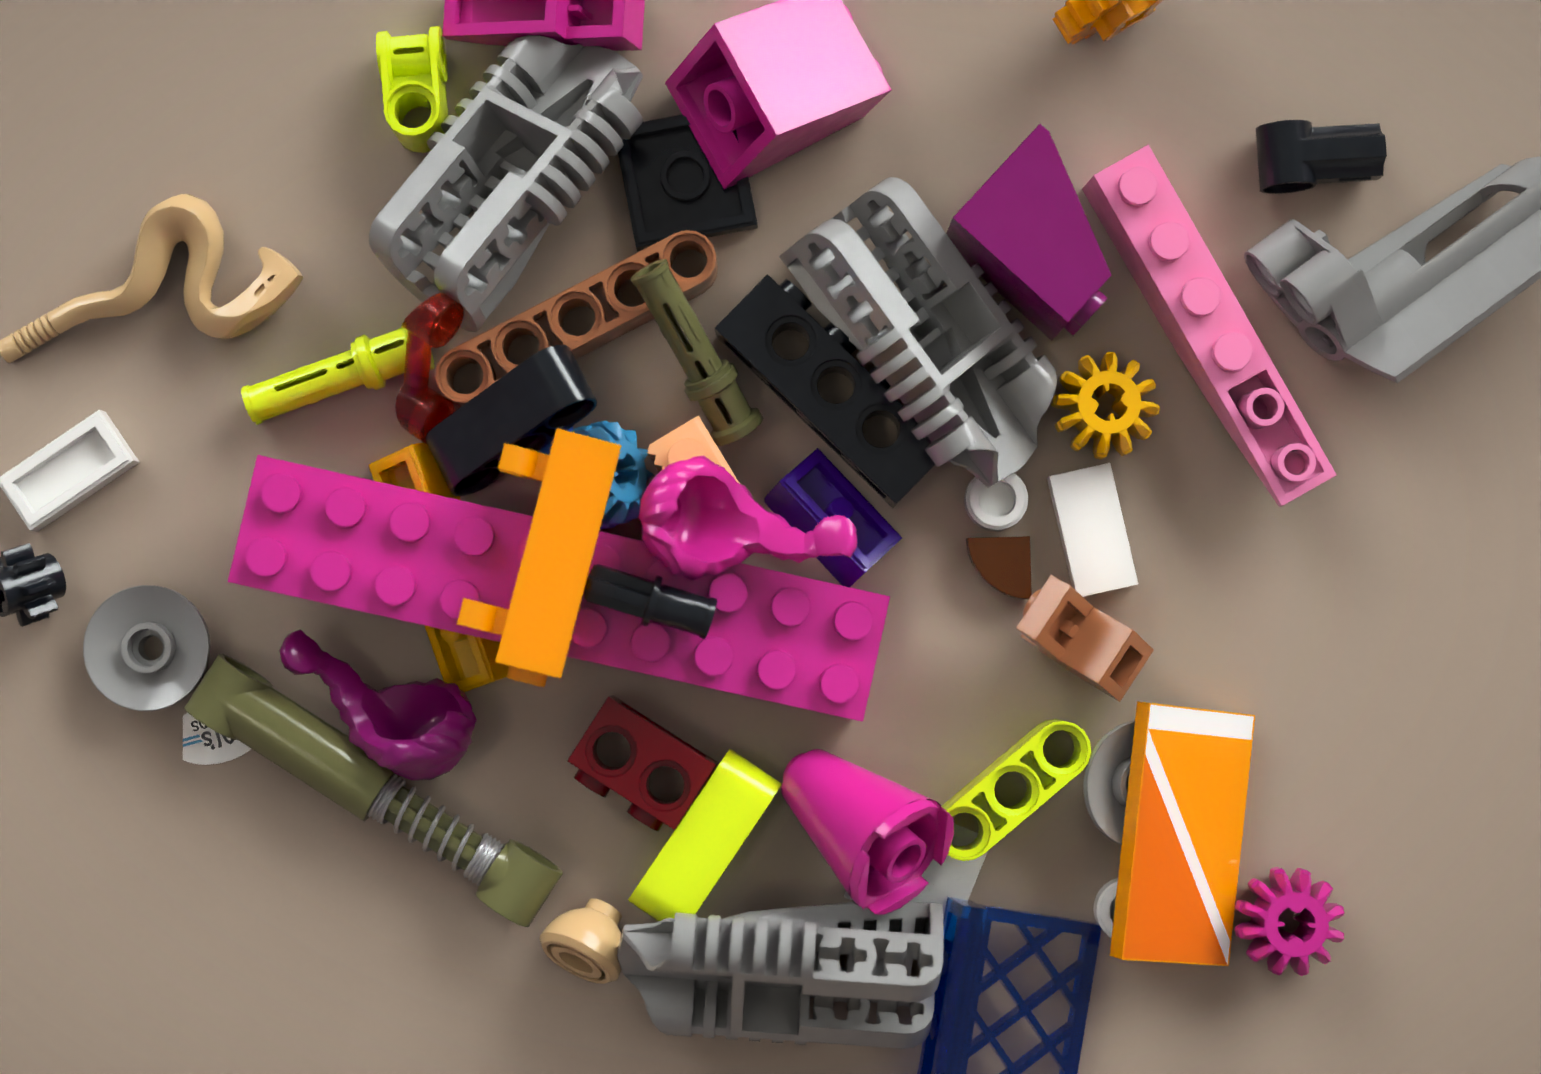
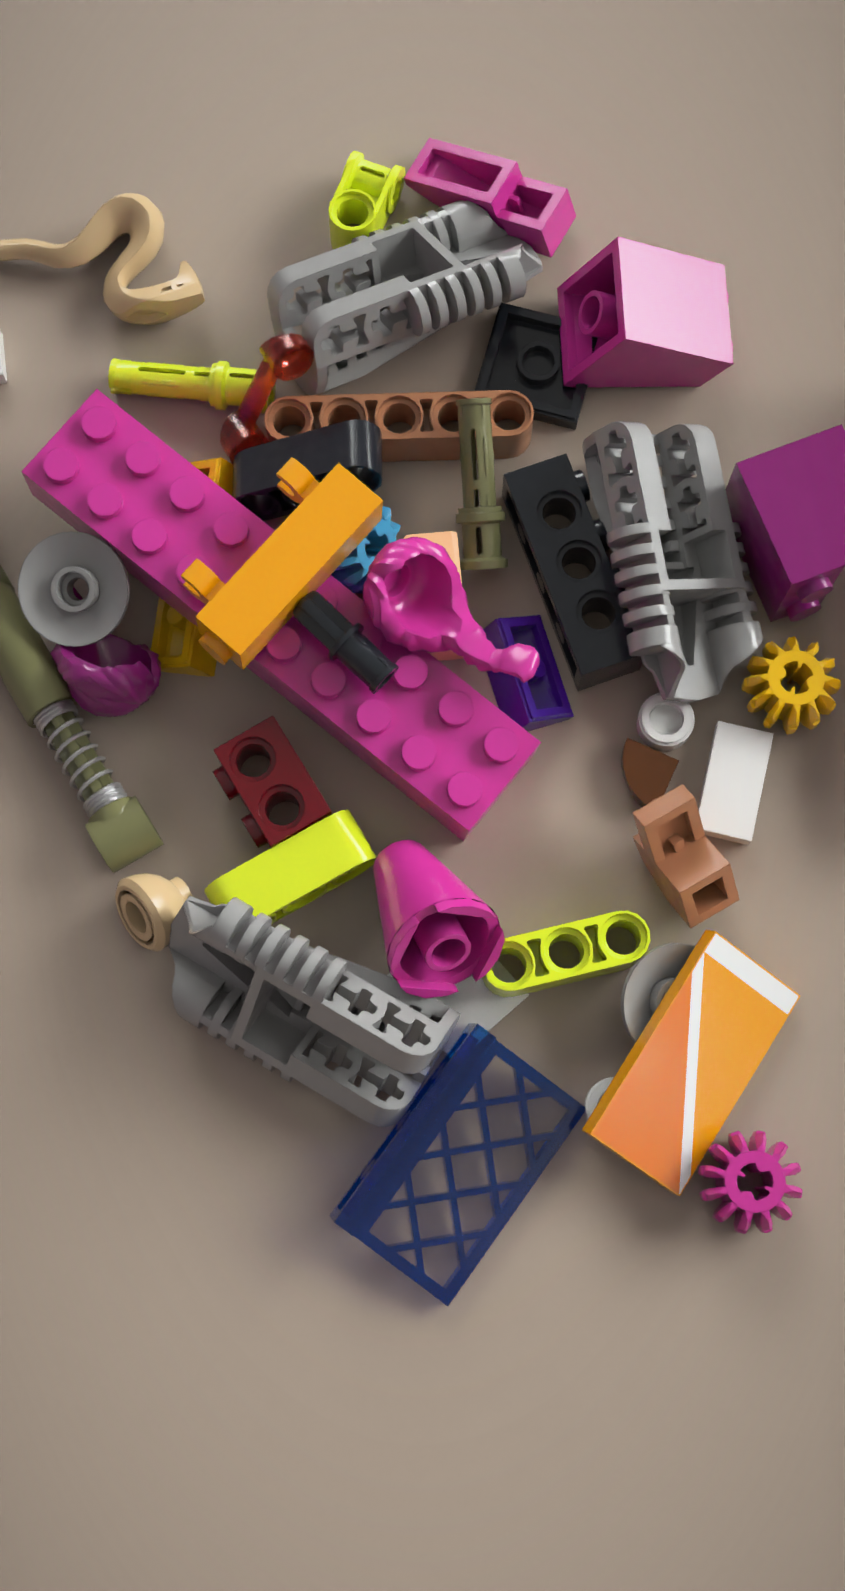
camera: 25 degrees right, 10 degrees down
(337, 696) = (48, 593): none -> light grey dish

